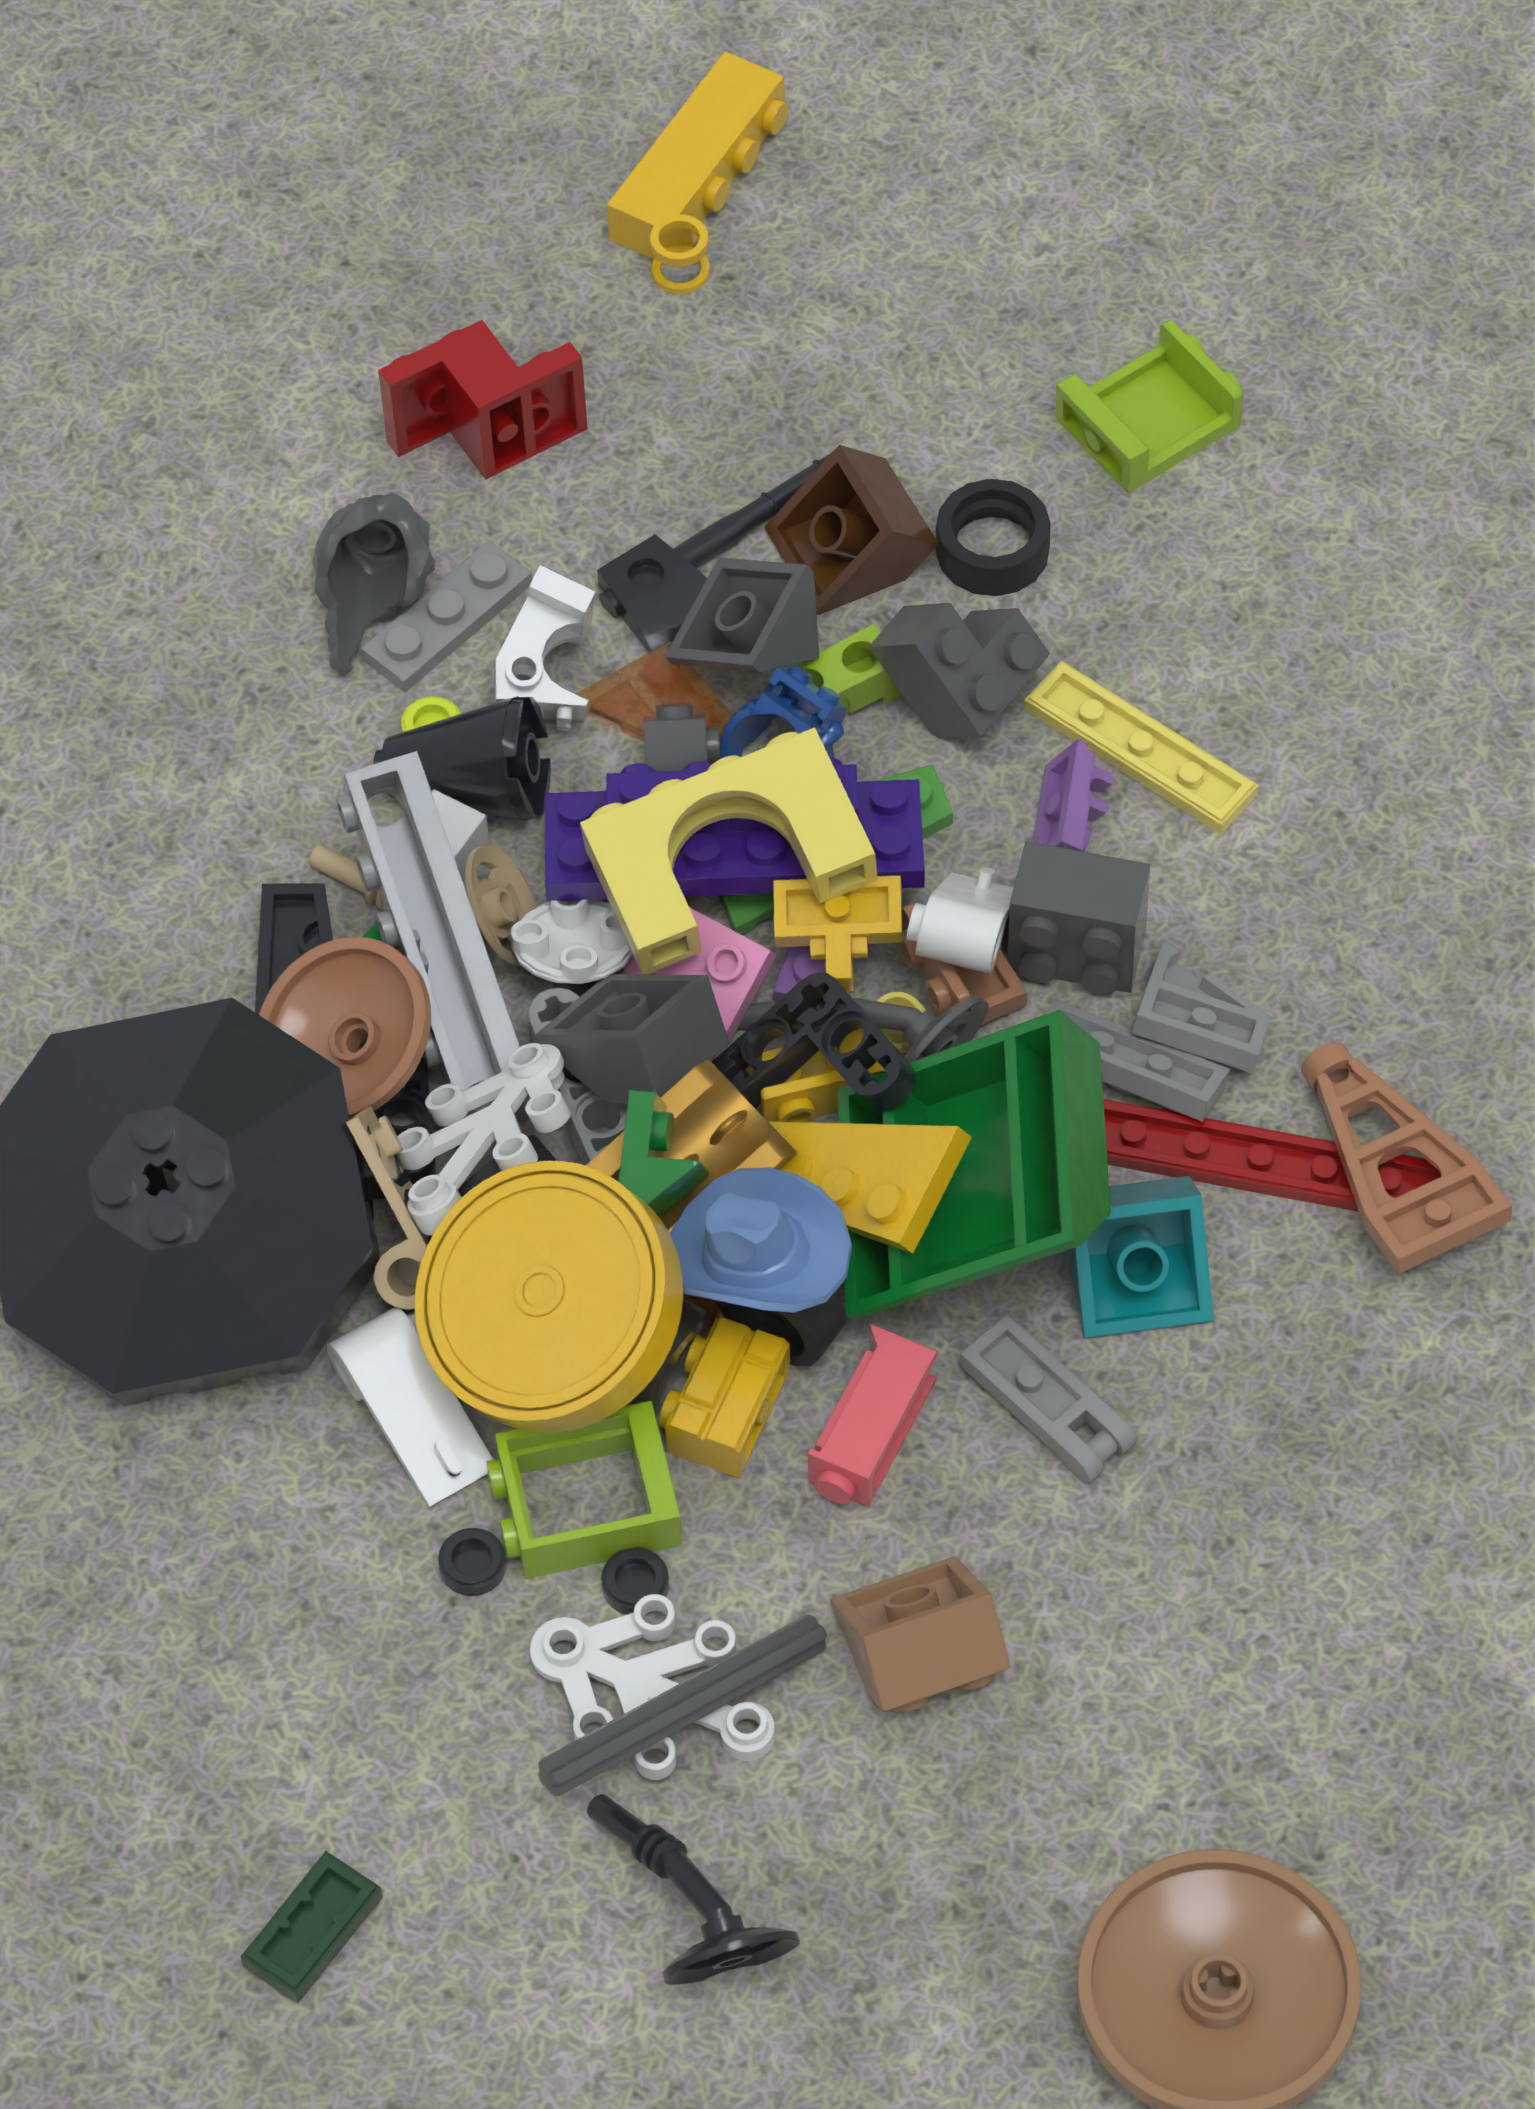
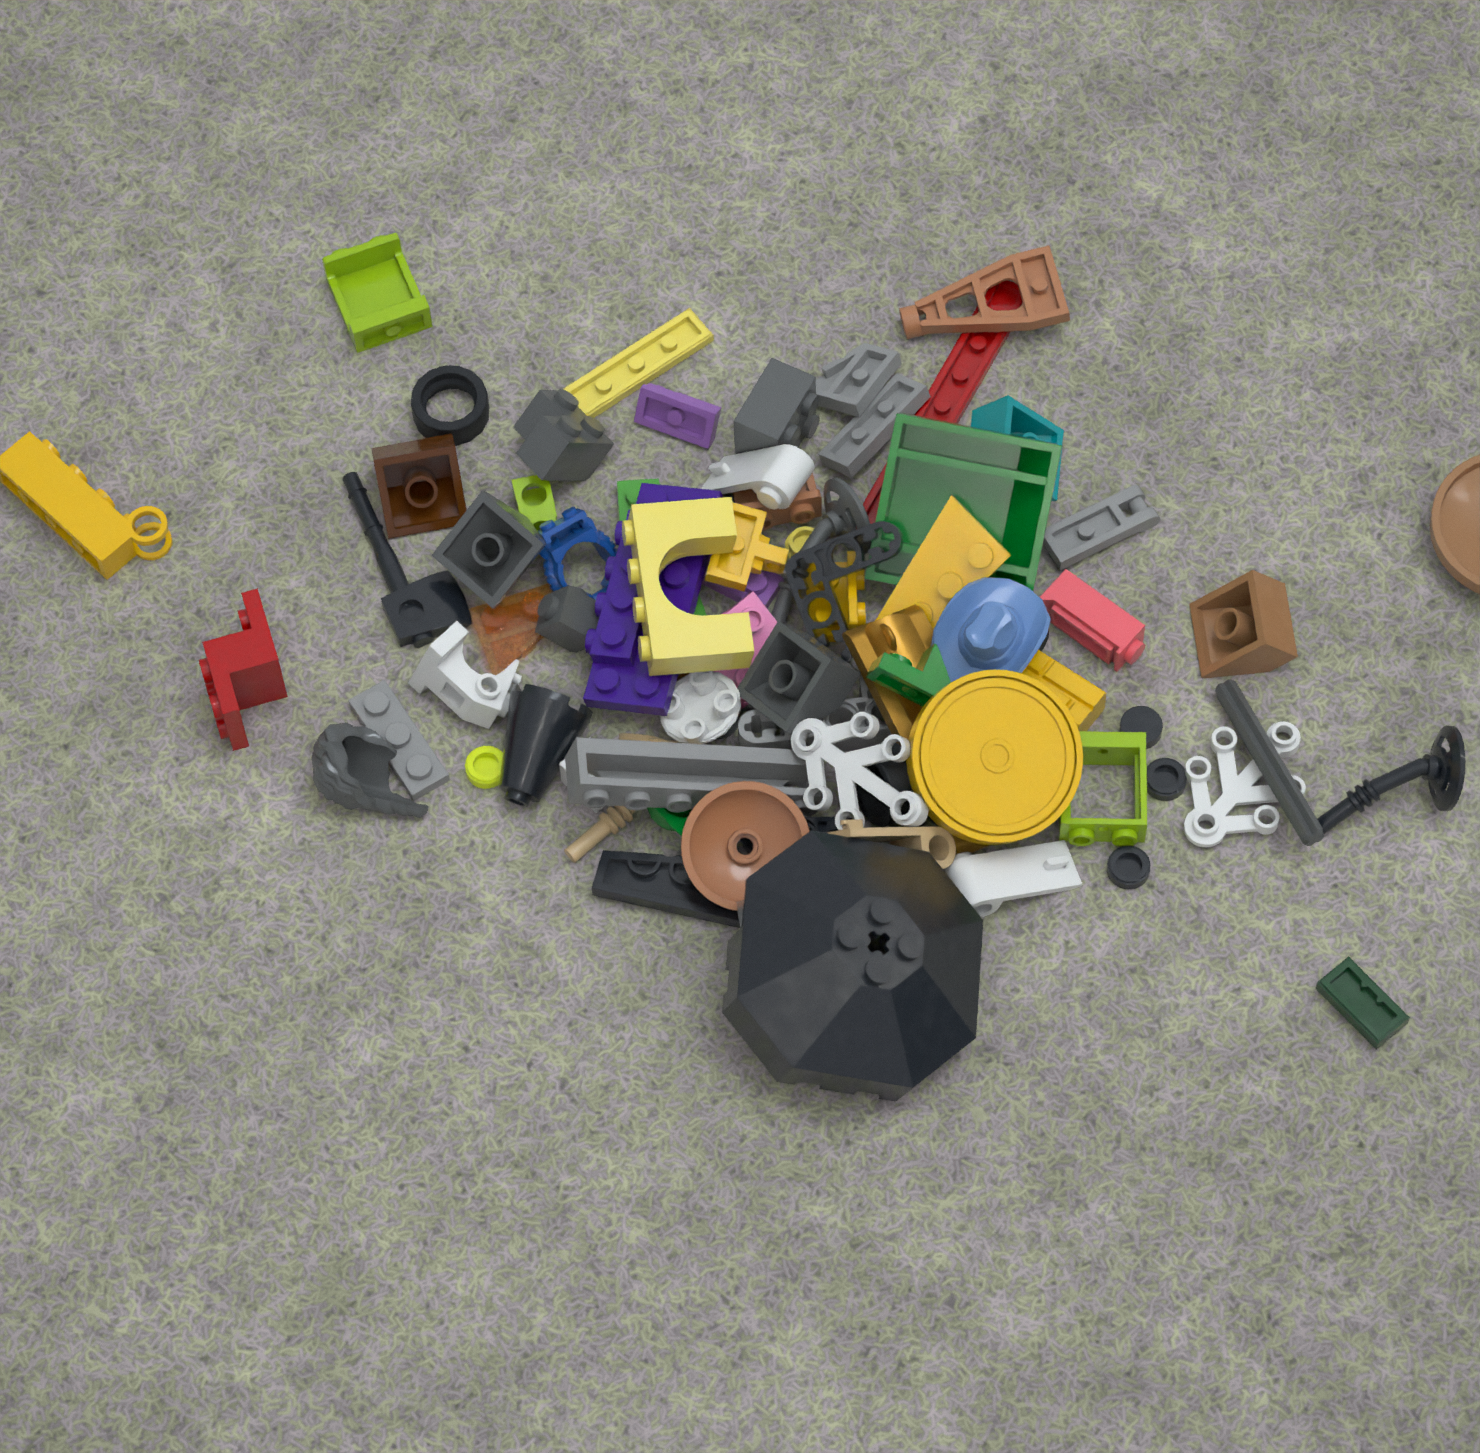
camera: 75 degrees left, 5 degrees up
(715, 1530) = (1143, 720): none -> black tile

